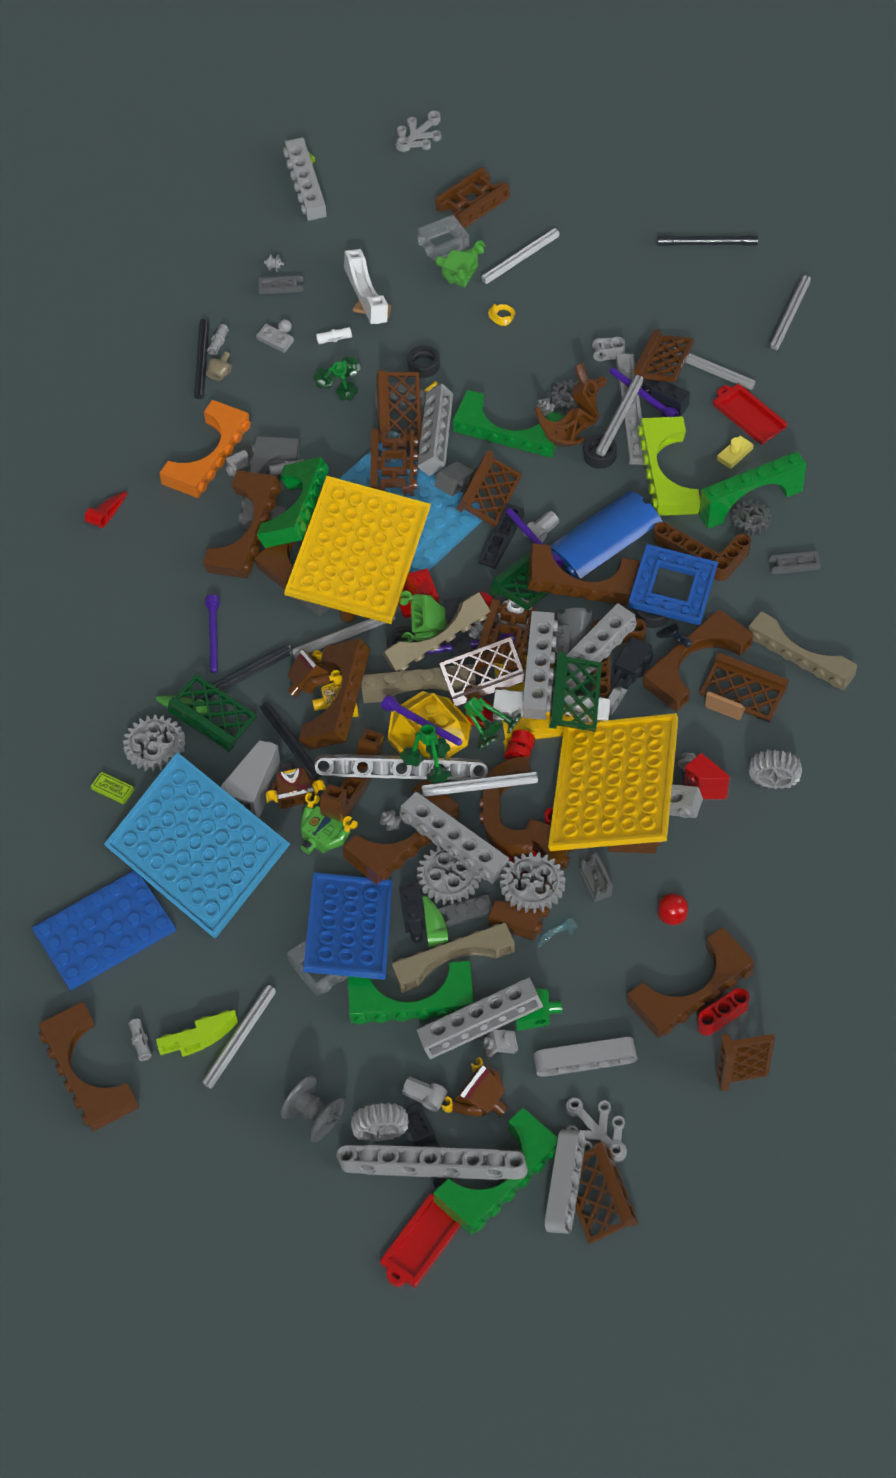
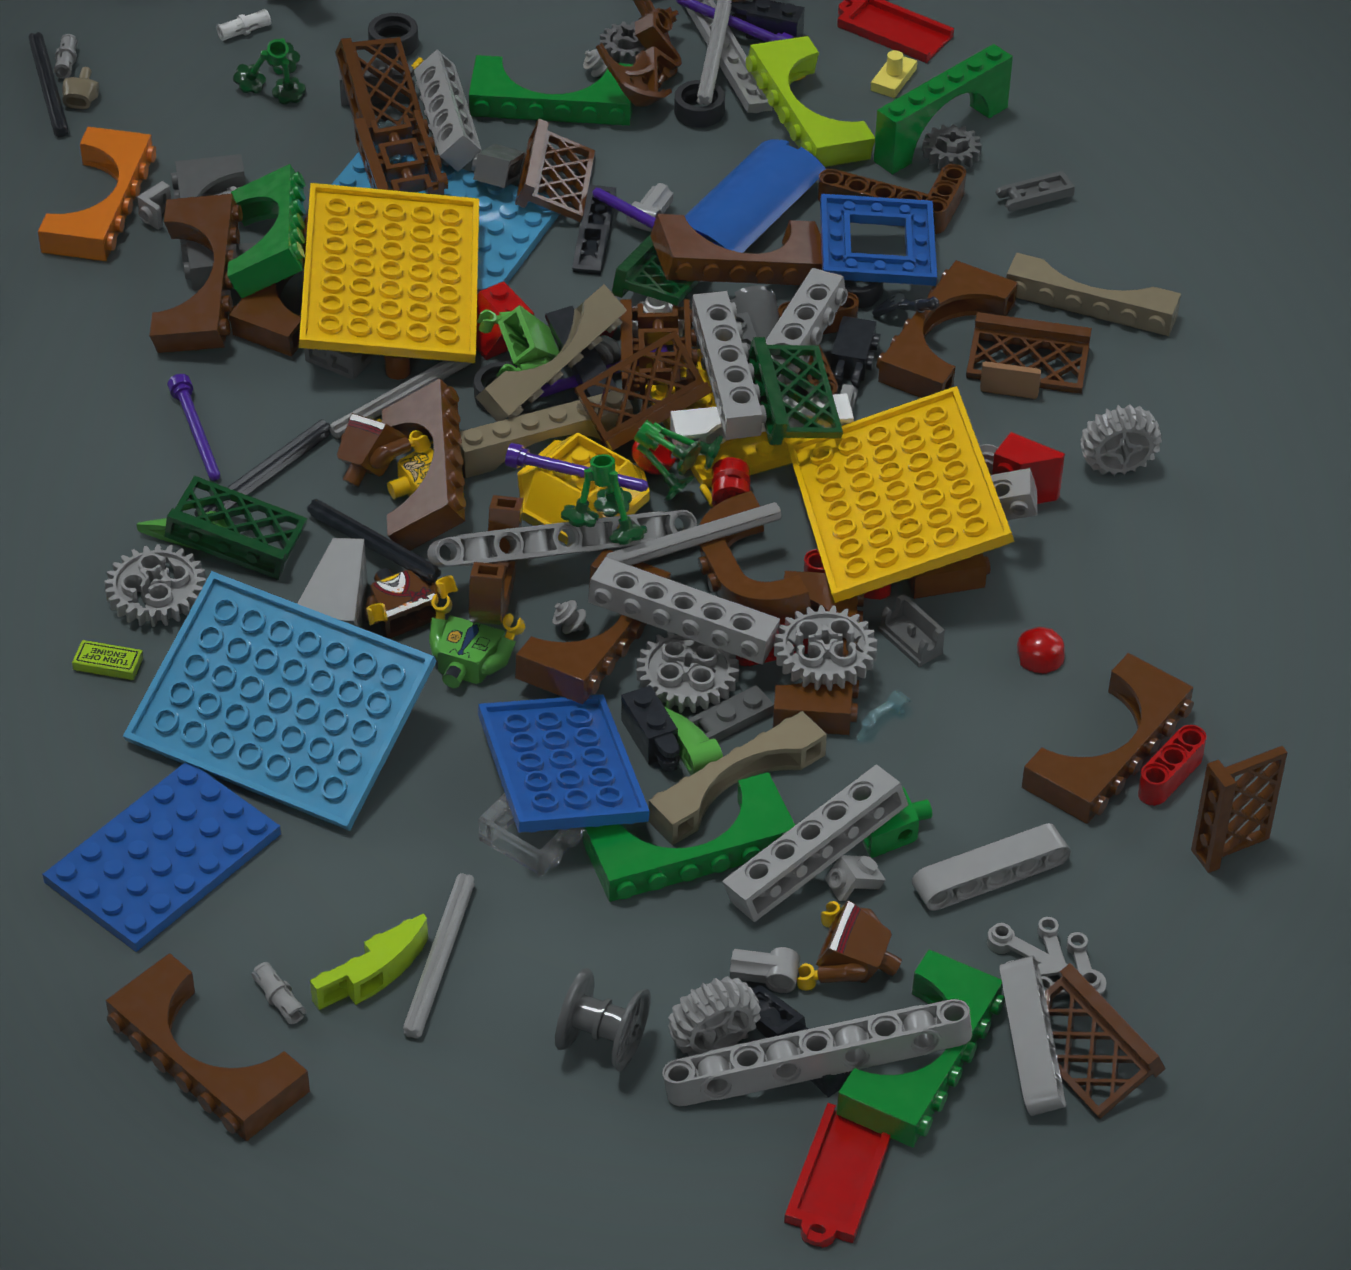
camera: 20 degrees left, 10 degrees down
(276, 337) = (157, 40): light grey plate -> none

